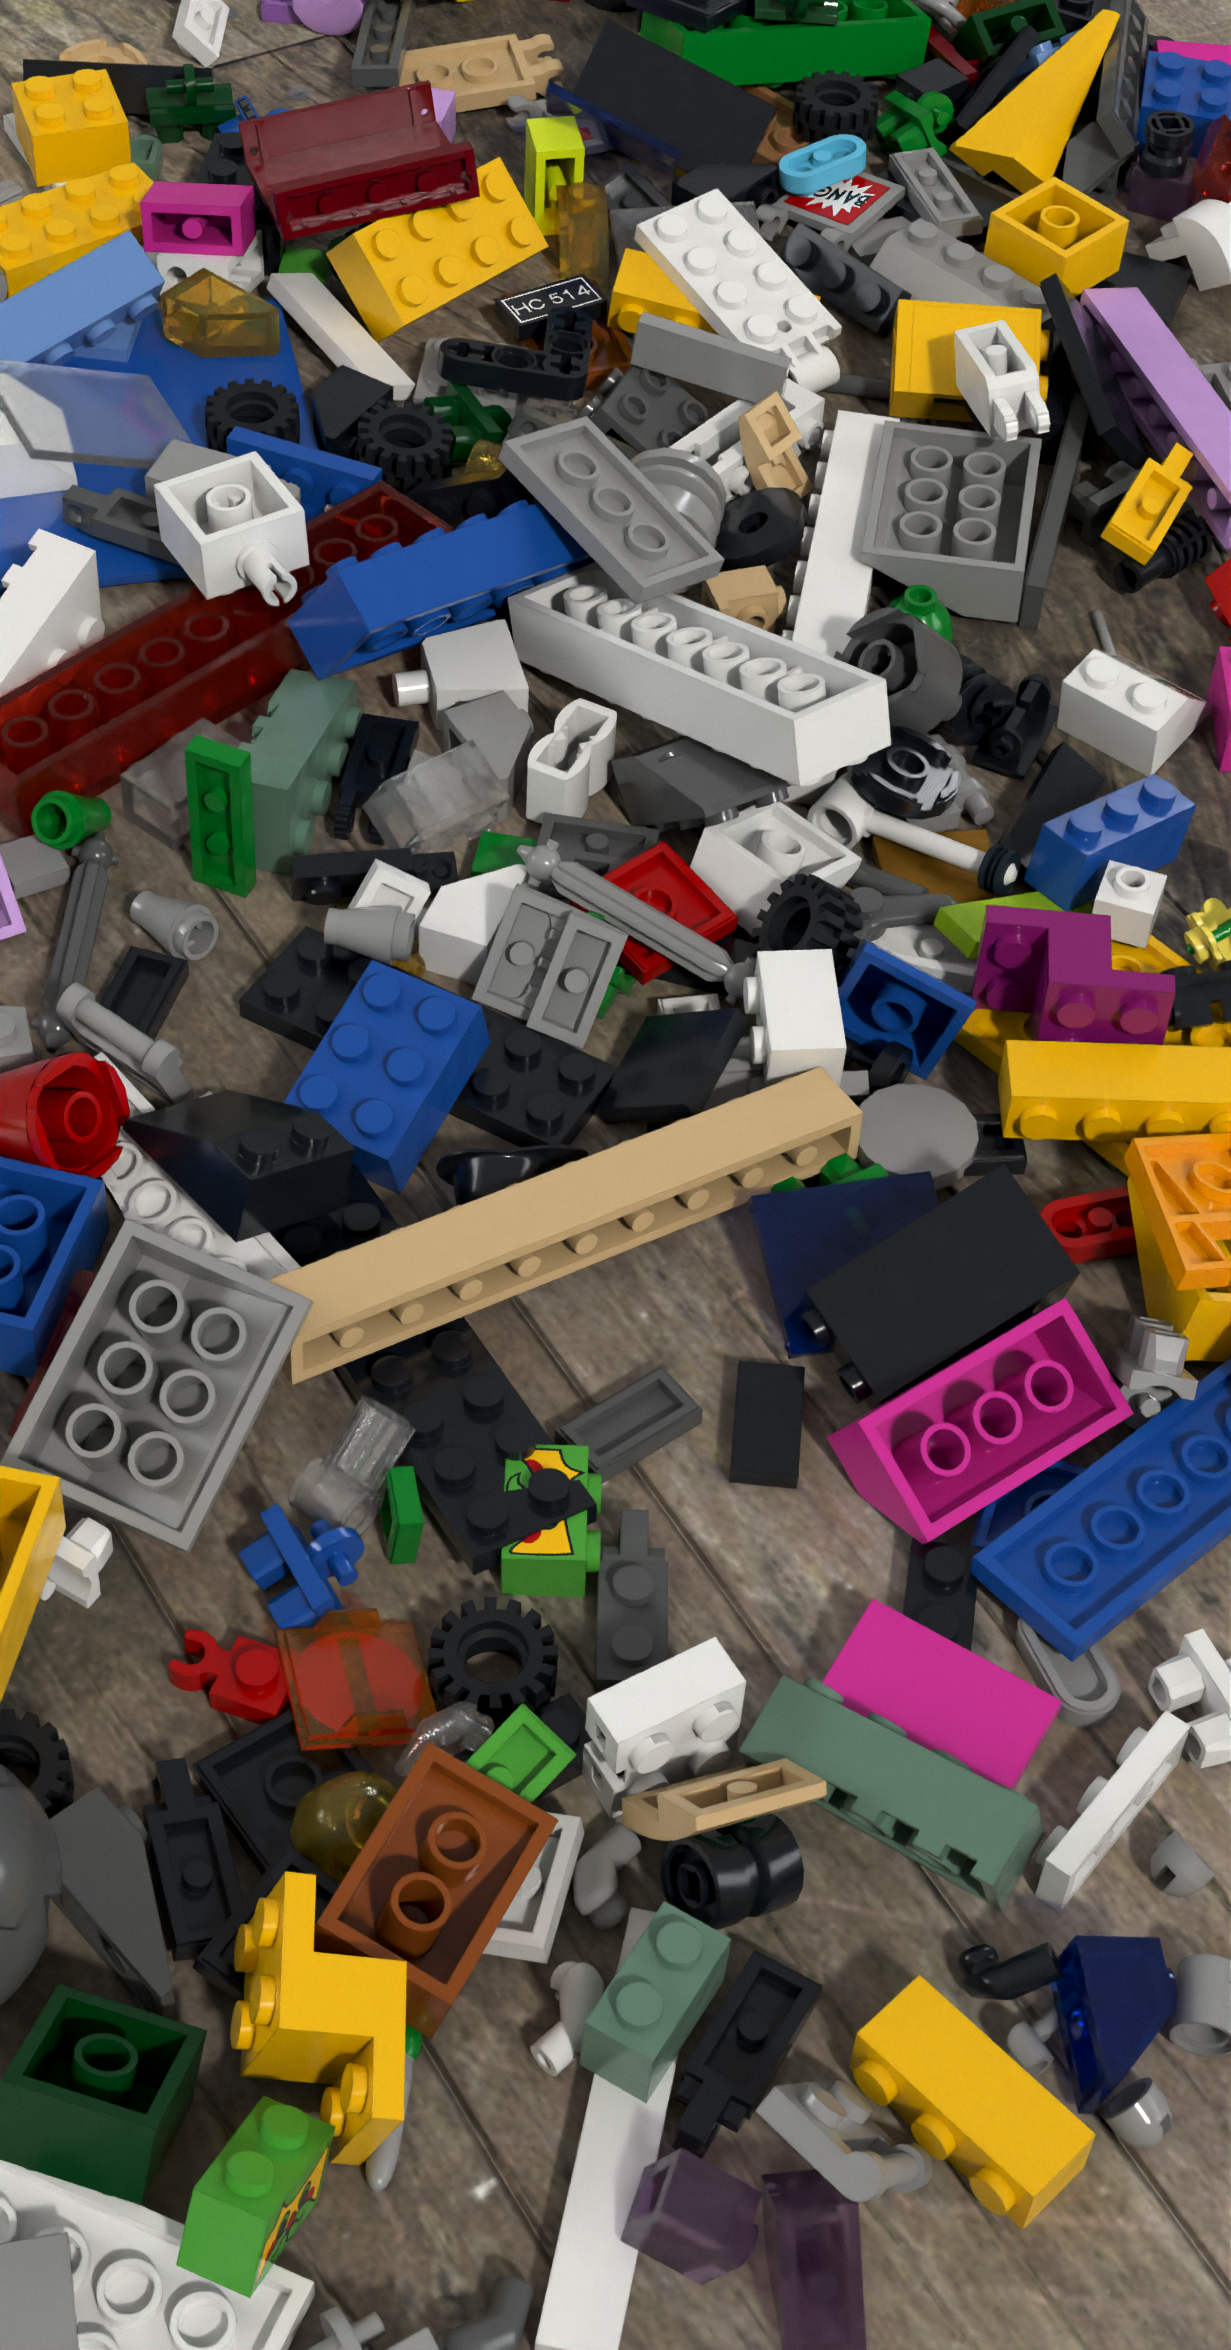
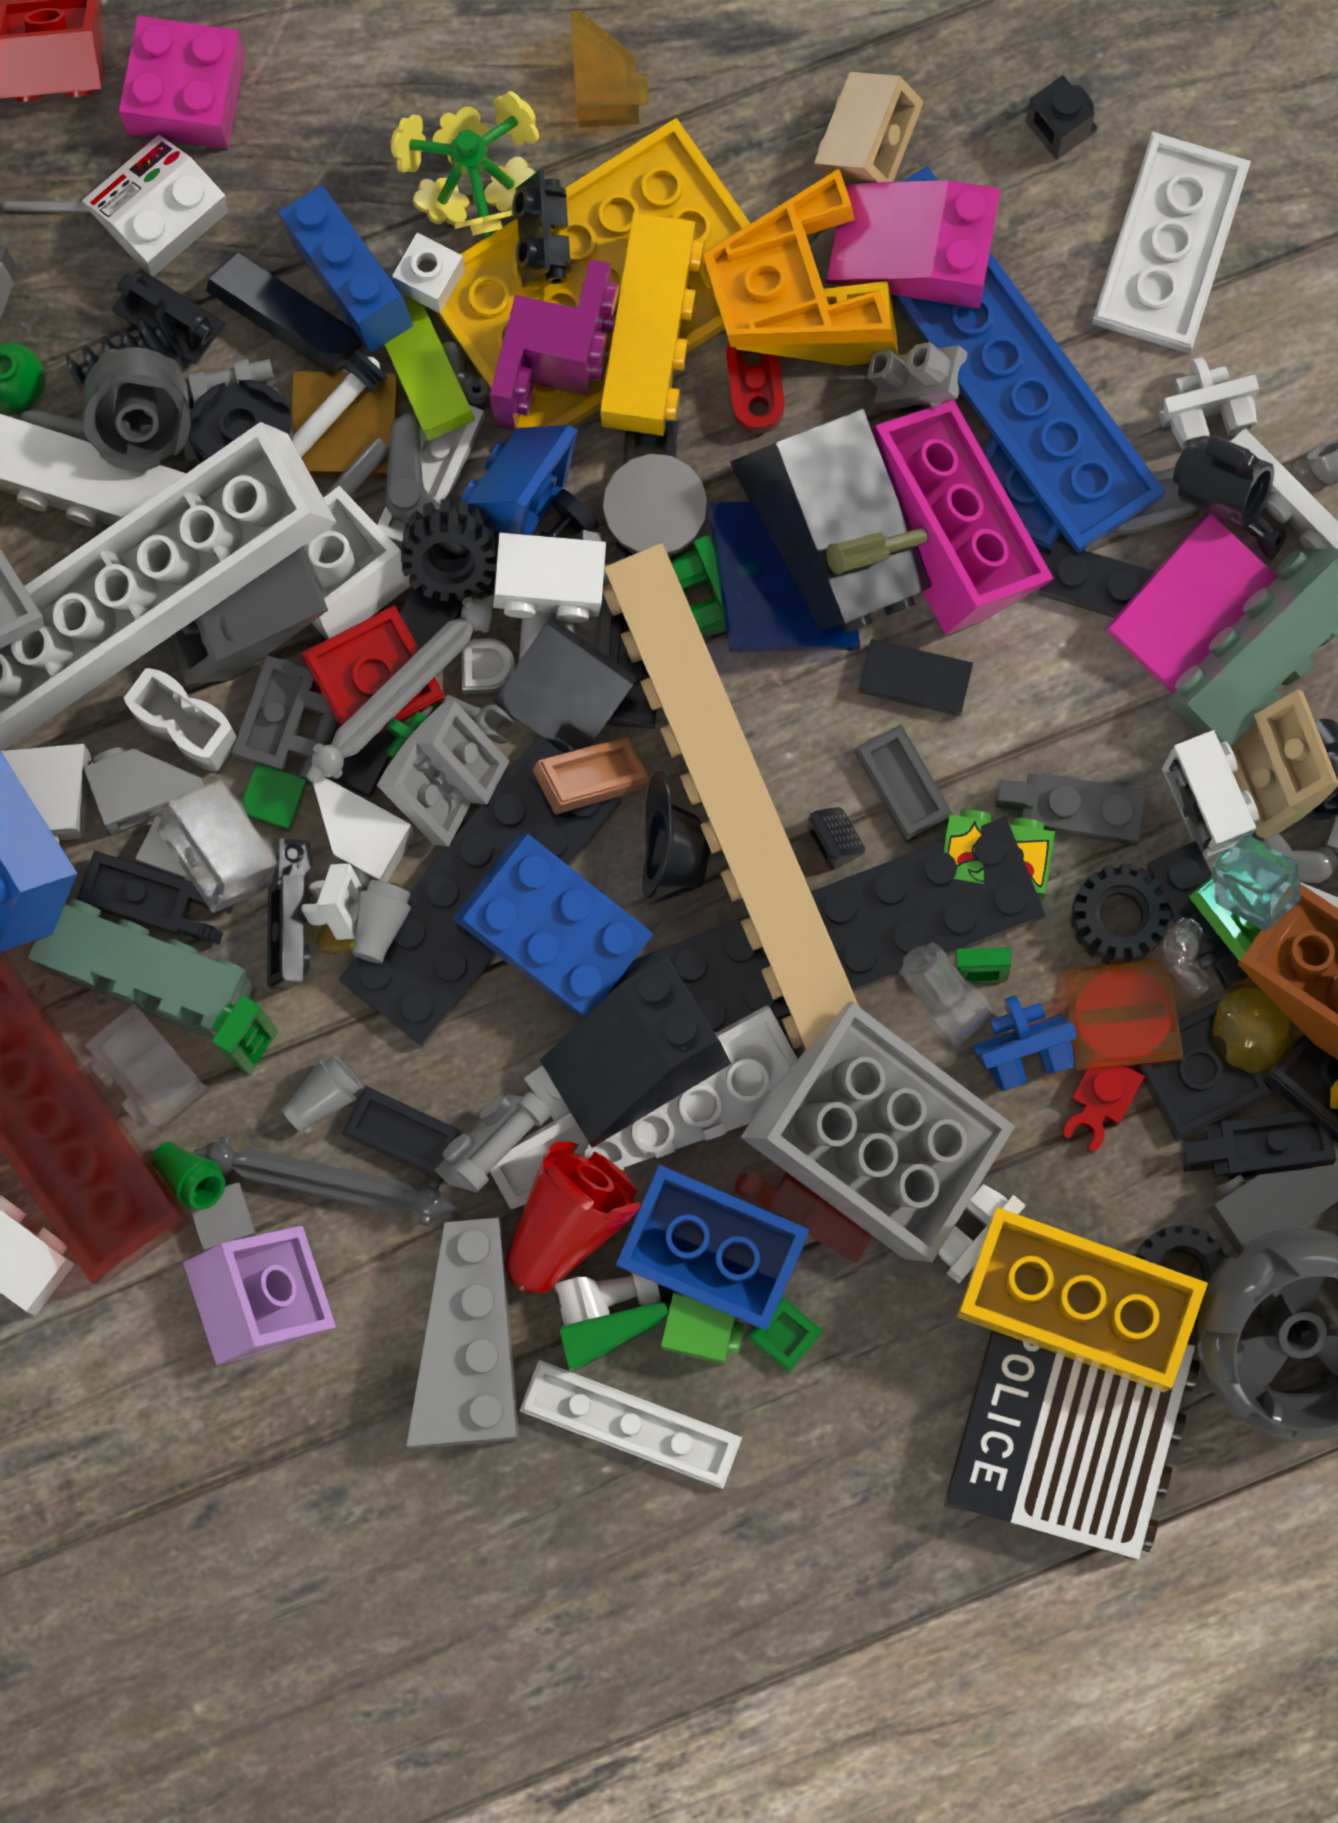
camera: 75 degrees left, 30 degrees up
(539, 1749) = (1256, 882): none -> clear light blue brick
(546, 1353) = (835, 836): none -> black slope
(573, 1098) = (591, 775): none -> nougat tile
(624, 1024) = (486, 718): none -> light grey hand
(903, 1299) = (870, 549): none -> olive axle
(1099, 1713) = (1230, 485): none -> black piece

